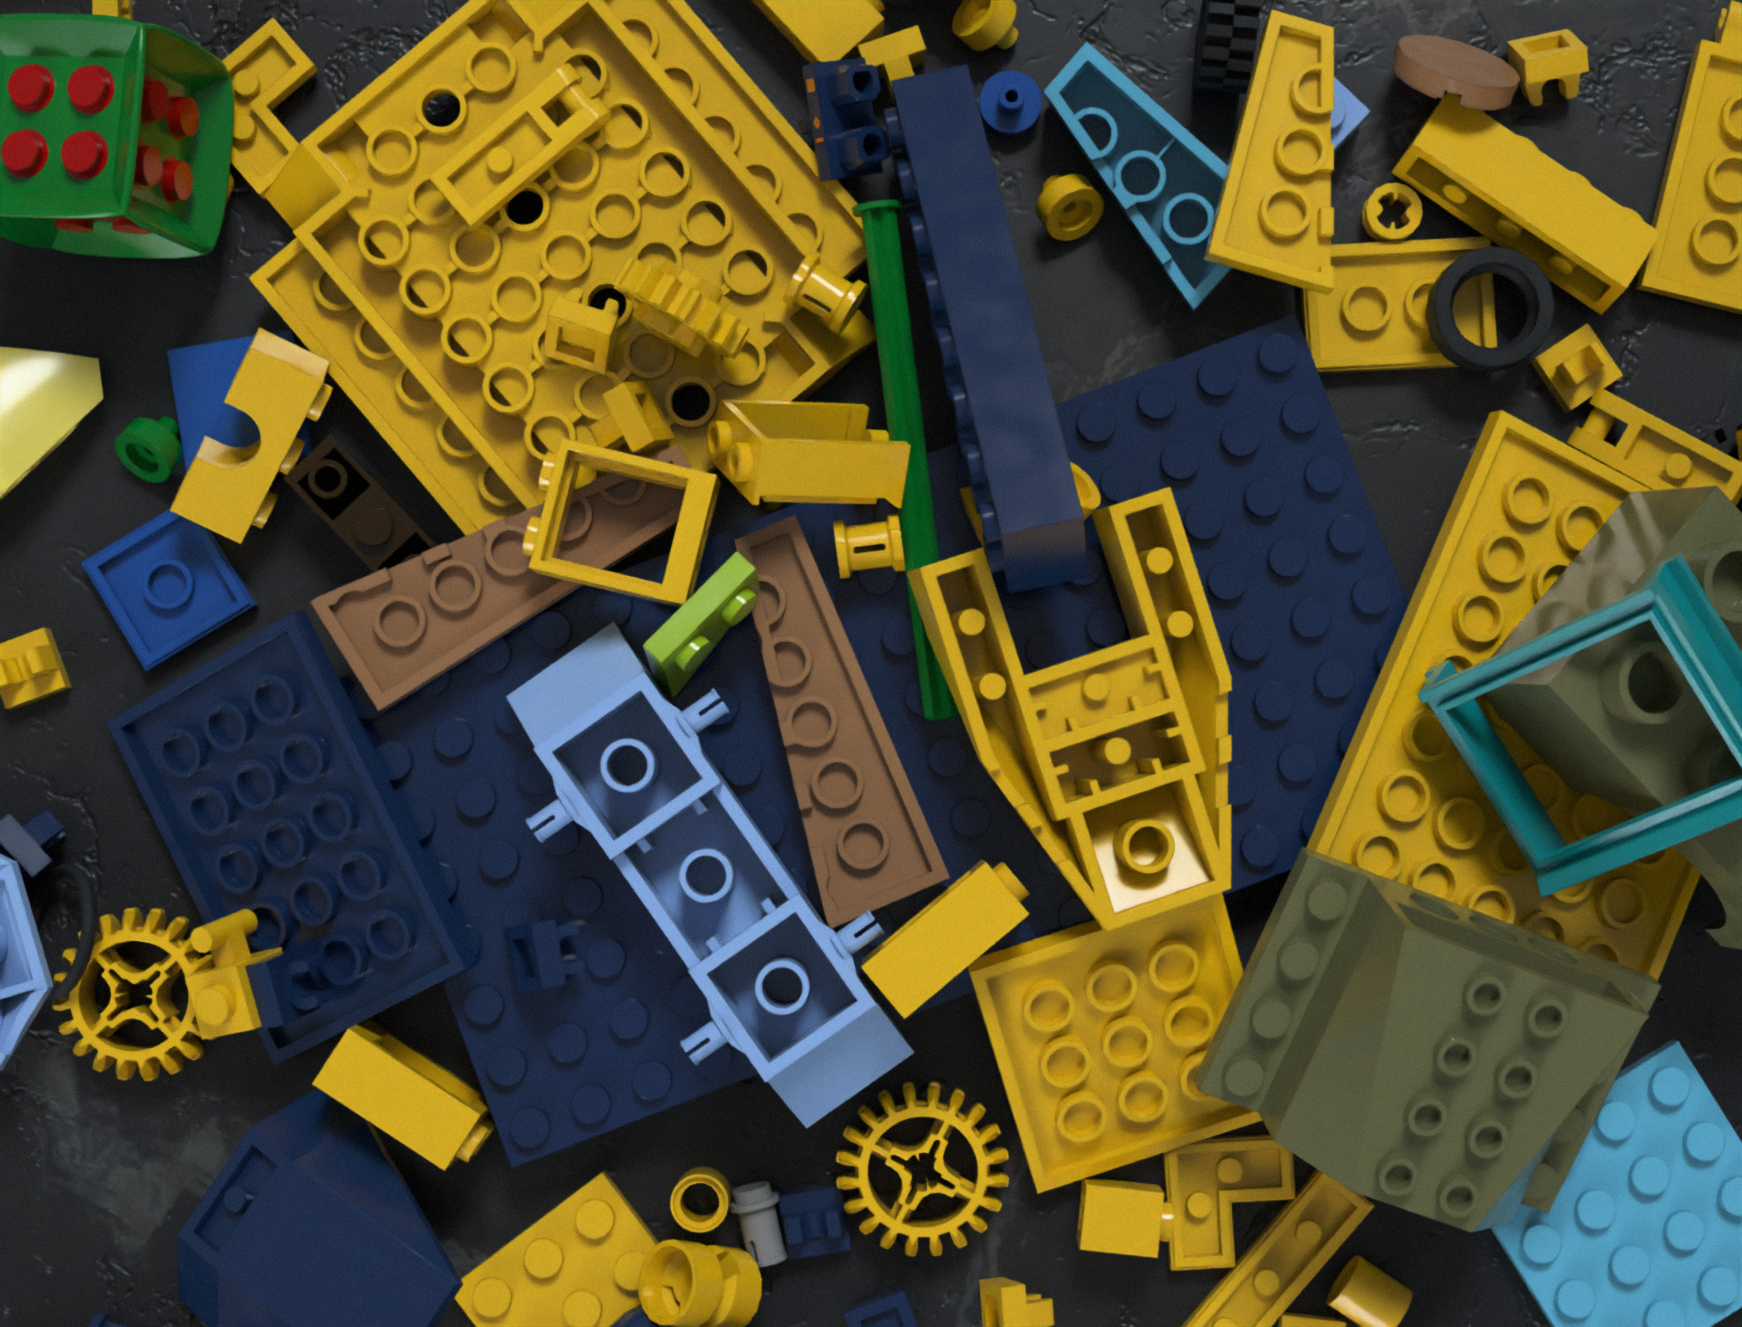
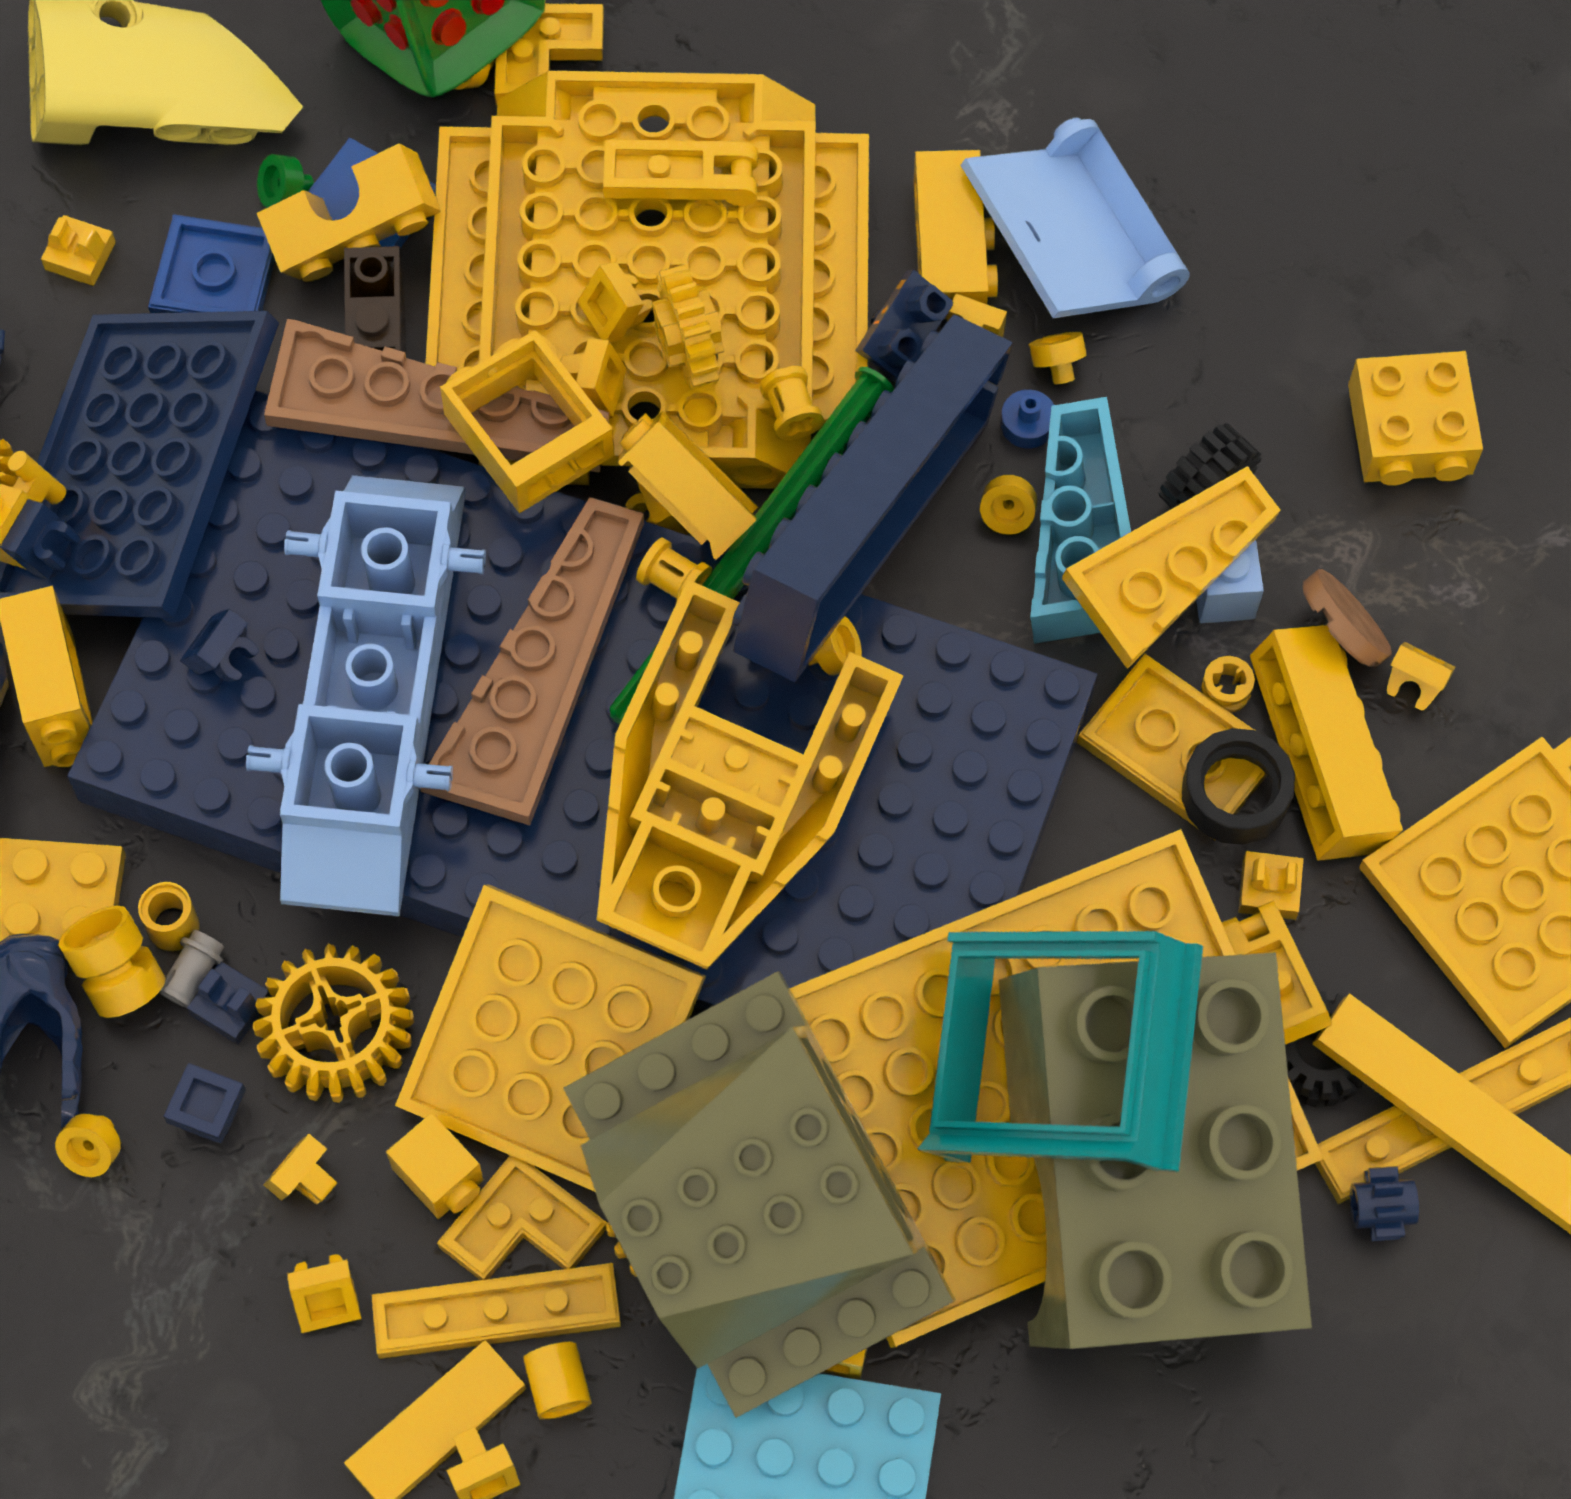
camera: 35 degrees right, 20 degrees down
(701, 622) = (518, 517): lime wing -> none
(946, 936) = (489, 839): yellow window -> none

